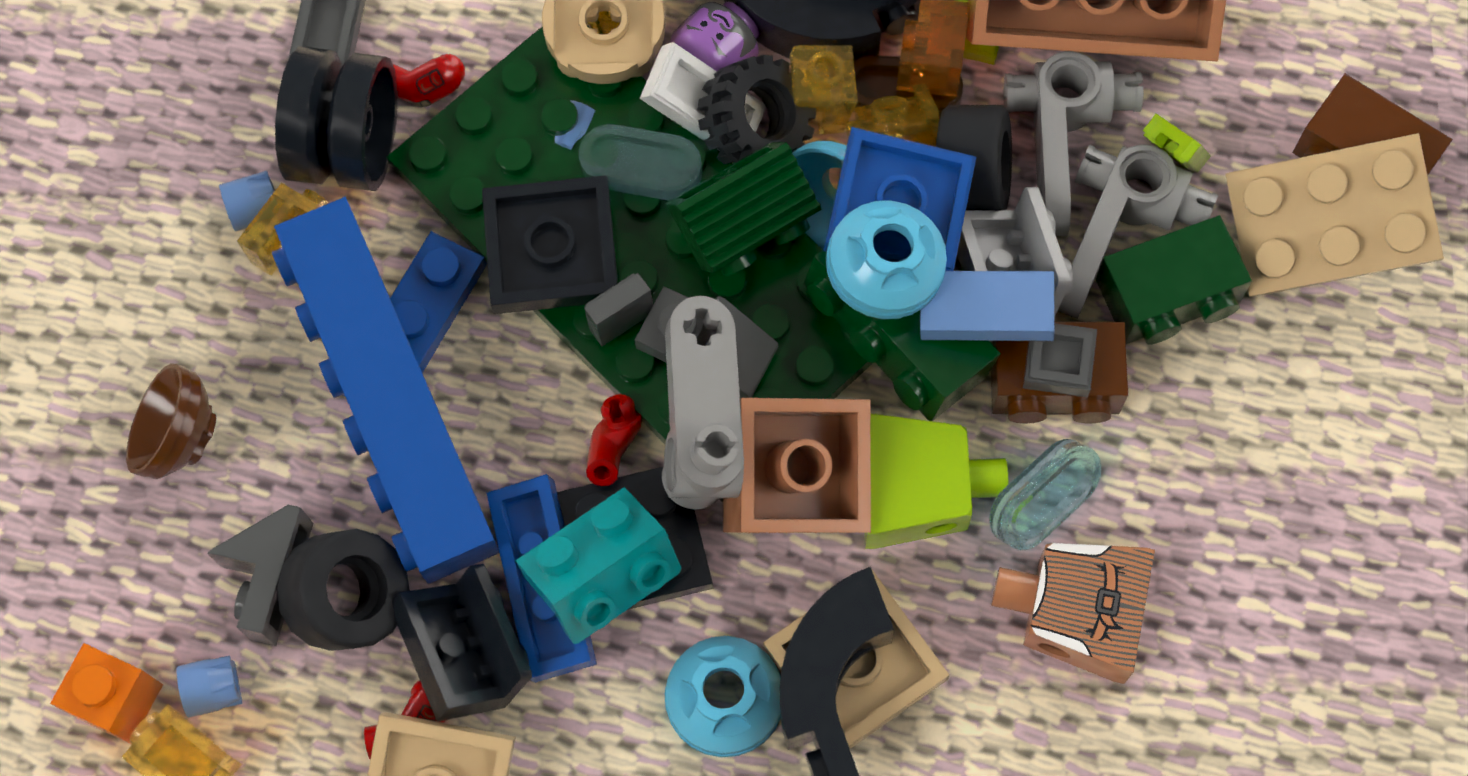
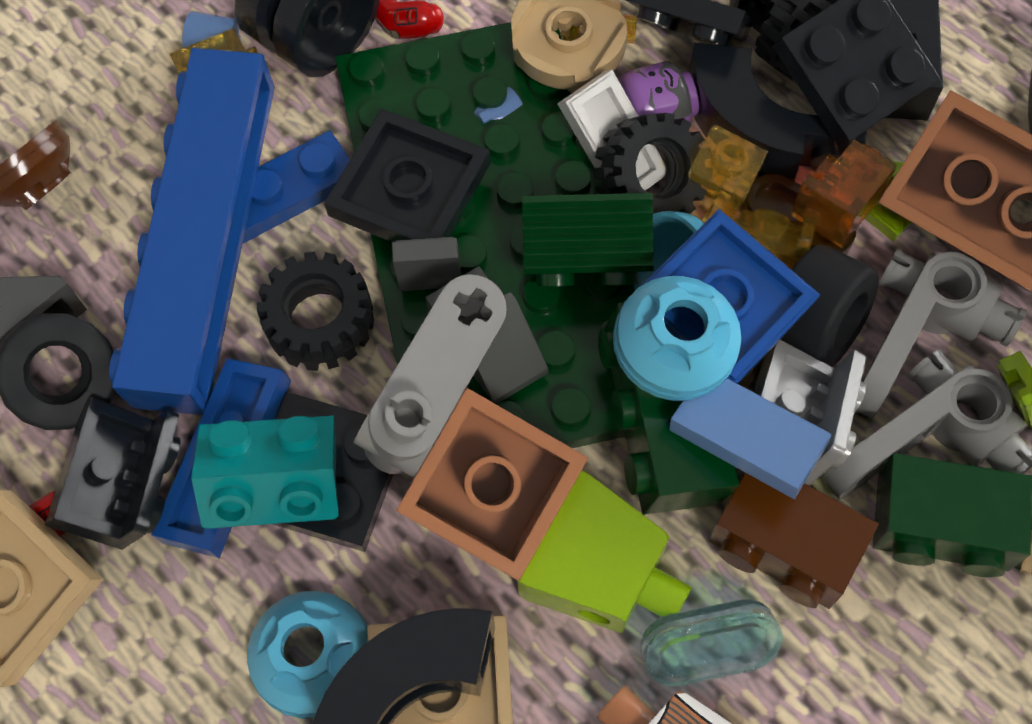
camera: 30 degrees right, 5 degrees down
(530, 369) = (306, 280): none -> black tyre
(612, 439) = (358, 374): red arm -> none
(641, 161) = (529, 156): clear light blue tile -> none
(1062, 364) = (795, 527): dark grey tile -> none

